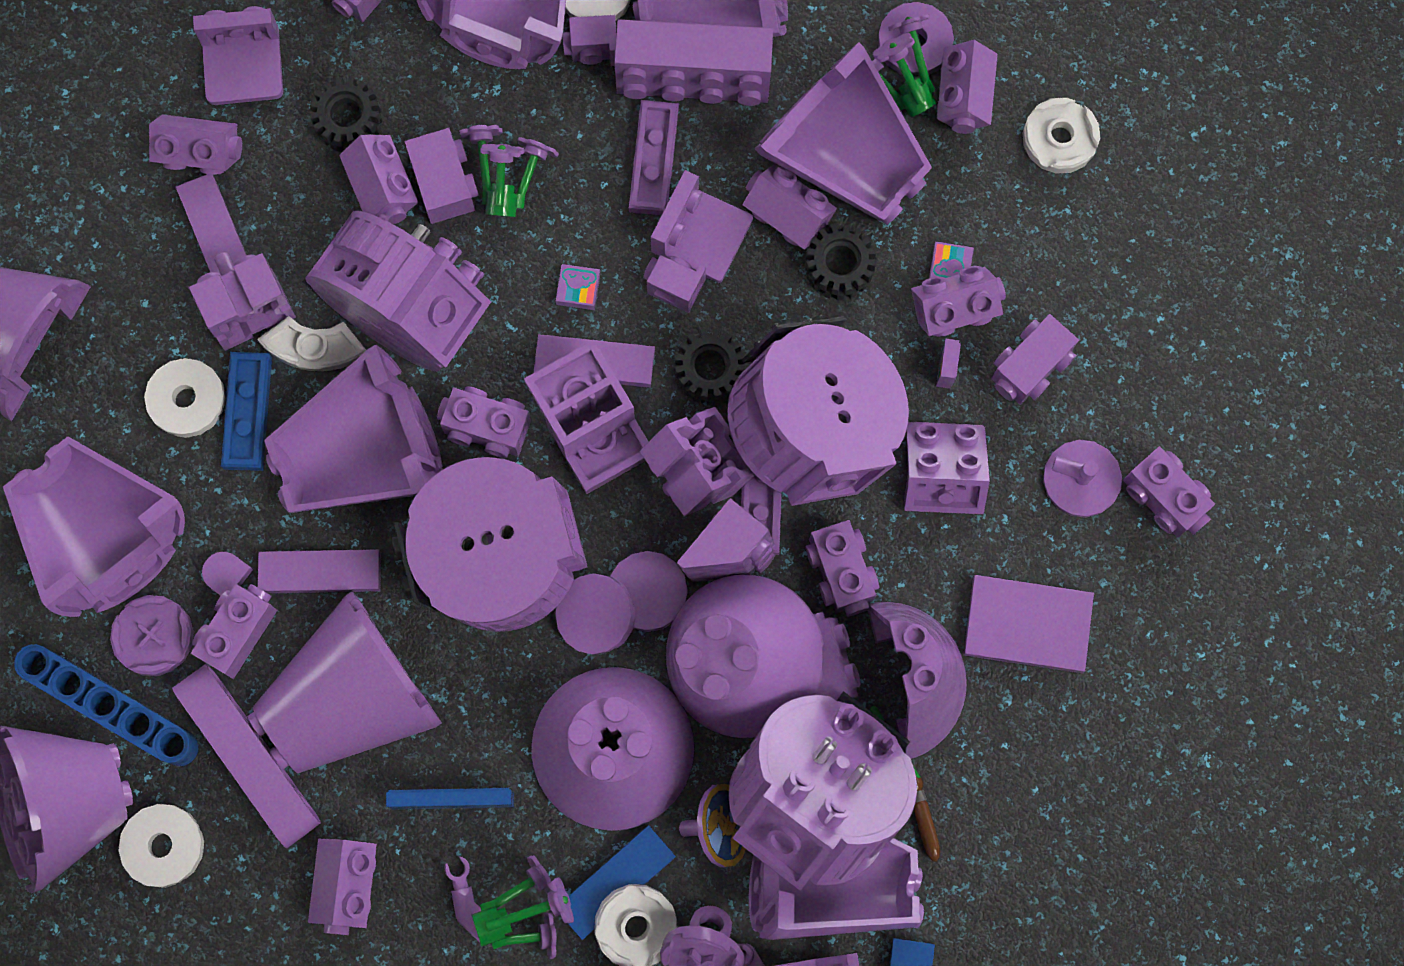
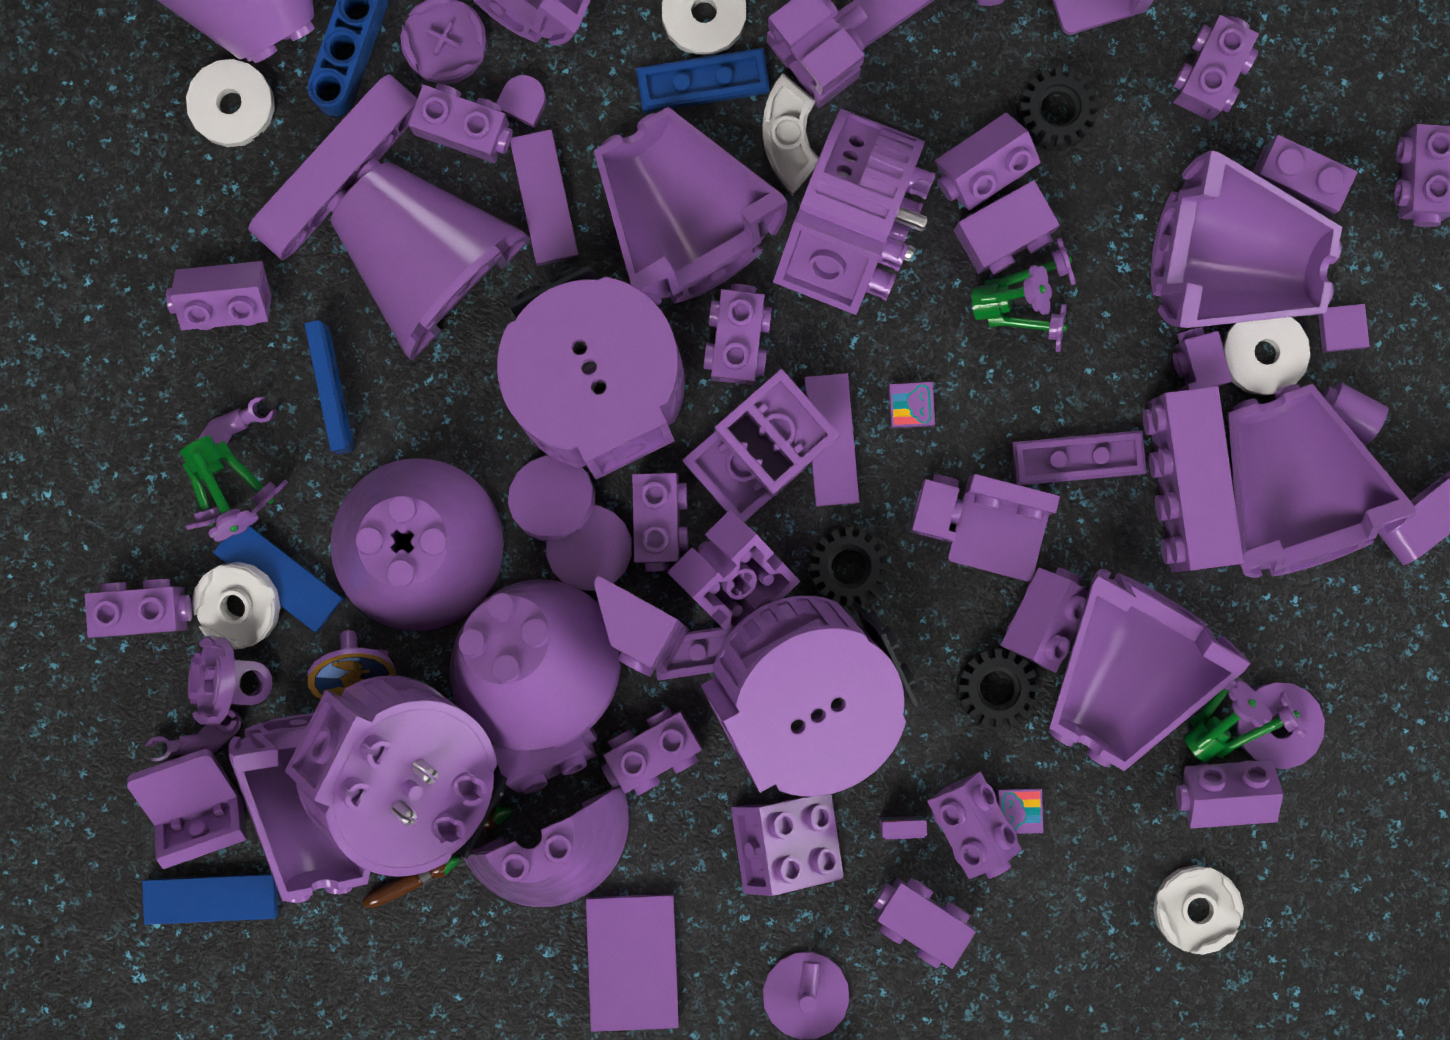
camera: 80 degrees right, 10 degrees up
(635, 521) = (657, 520): none -> medium lavender brick

